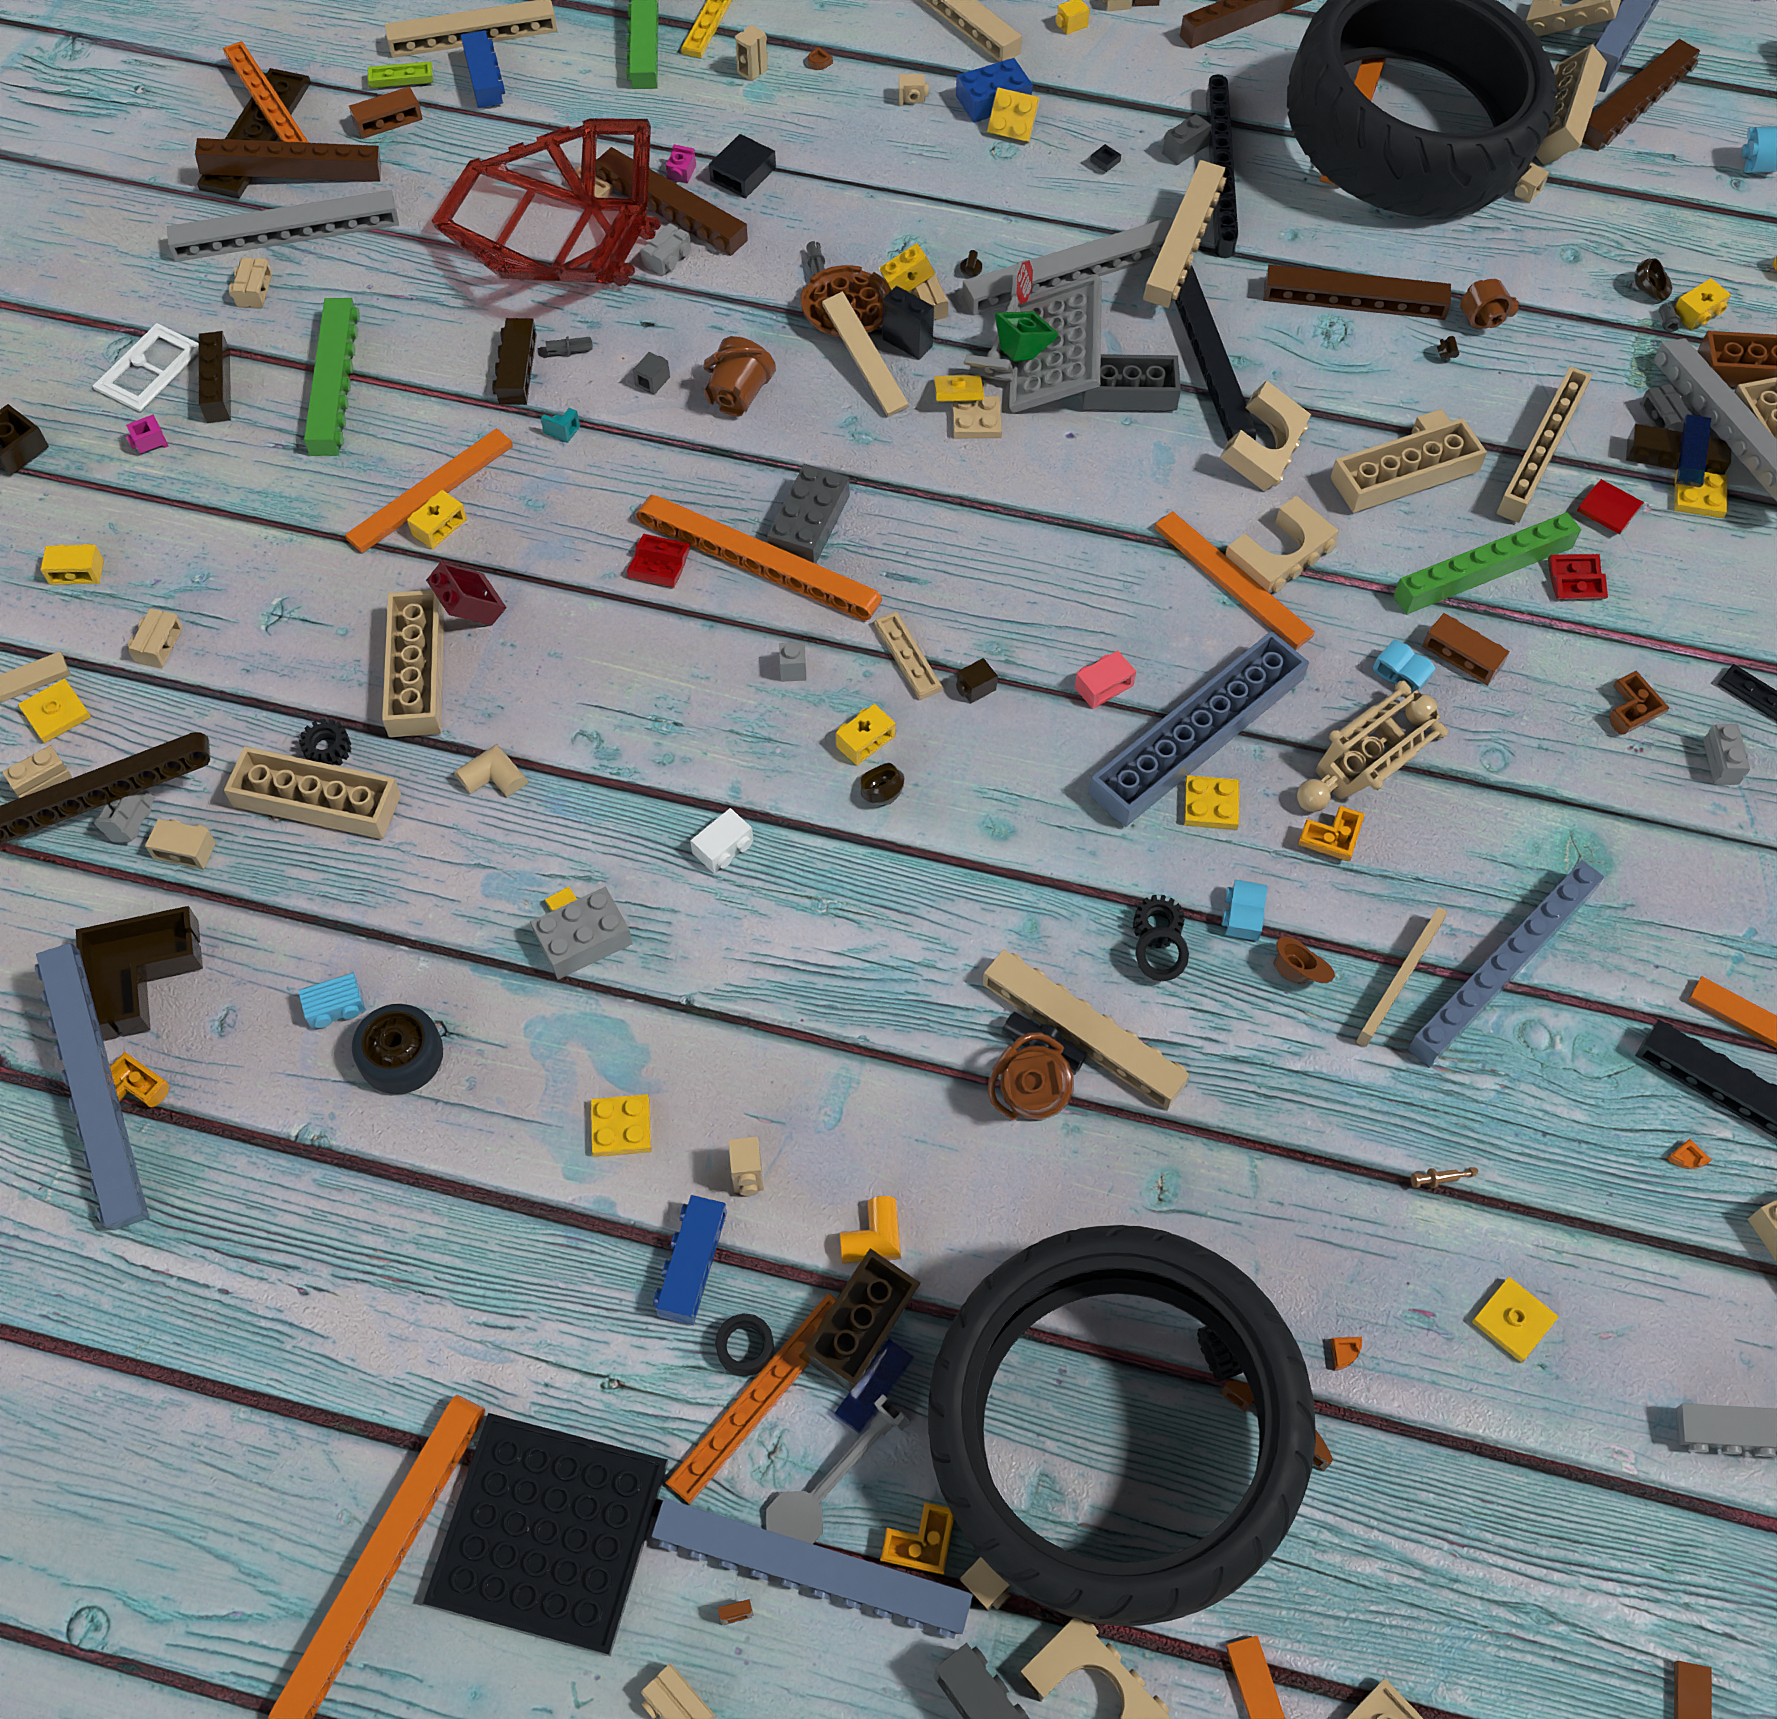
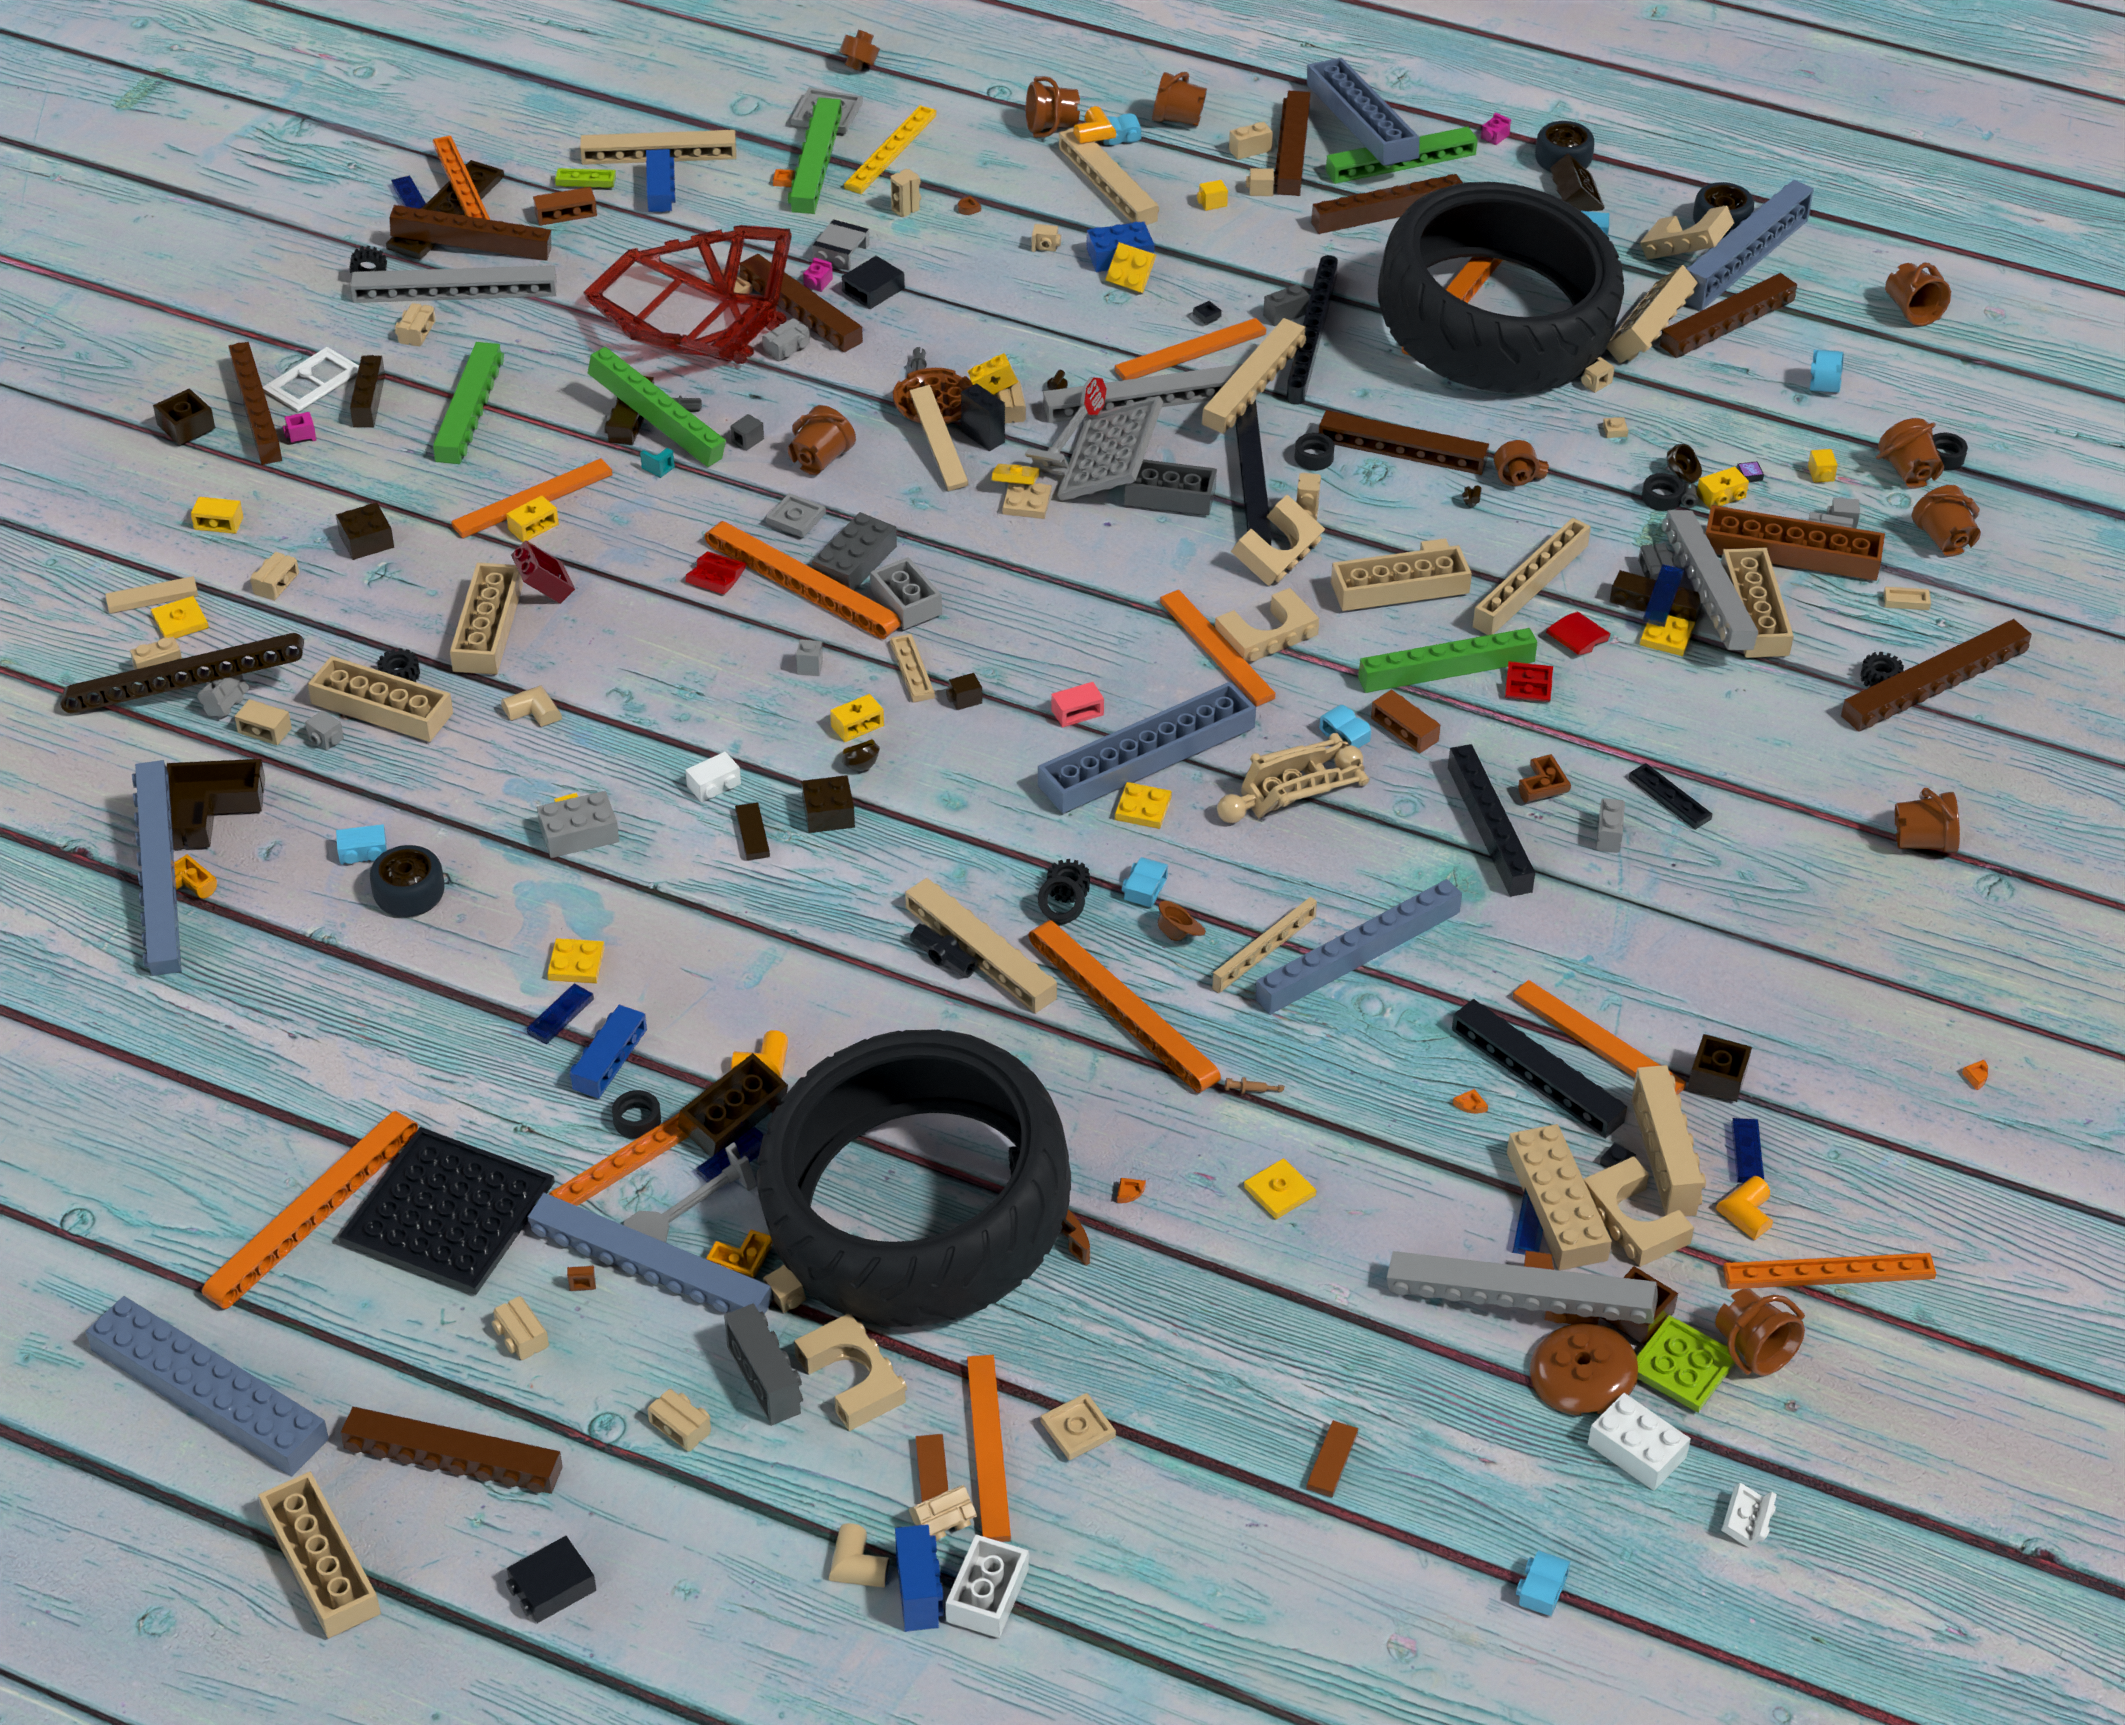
camera: 10 degrees right, 15 degrees down
(88, 410) = (255, 403): none -> reddish brown brick
(181, 204) = (367, 255): none -> black tyre
(209, 117) = (408, 192): none -> clear blue tile
(248, 562) = (365, 531): none -> dark brown brick
(255, 845) = (324, 730): none -> light grey brick
(546, 357) = (656, 406): none -> bright green brick
(614, 49) = (783, 177): none -> orange tile
(619, 1206) = (560, 1013): none -> clear blue tile
(695, 122) = (839, 242): none -> light grey panel
(730, 473) = (795, 515): none -> light grey plate
(746, 1166) = (669, 993): tan brick -> none
(783, 907) = (752, 831): none -> dark brown tile
(862, 859) = (828, 804): none -> dark brown brick
(880, 560) = (906, 592): none -> light grey brick
(1023, 334) = (1082, 437): green slope -> none
(1032, 1079) = (923, 967): dark orange piece -> none
(1098, 206) = (1190, 349): none -> orange tile
(1270, 303) = (1314, 441): none -> black tyre
(1271, 1090) = (1125, 1006): none -> orange beam
(1284, 371) = (1309, 492): none -> tan brick
(1335, 840) = (1242, 843): light orange brick -> none
(1565, 243) = (1615, 427): none -> tan plate
(1598, 768) = (1491, 820): none -> black brick
(1647, 306) = (1666, 482): none -> black tyre
(1721, 276) = (1751, 471): none -> tile

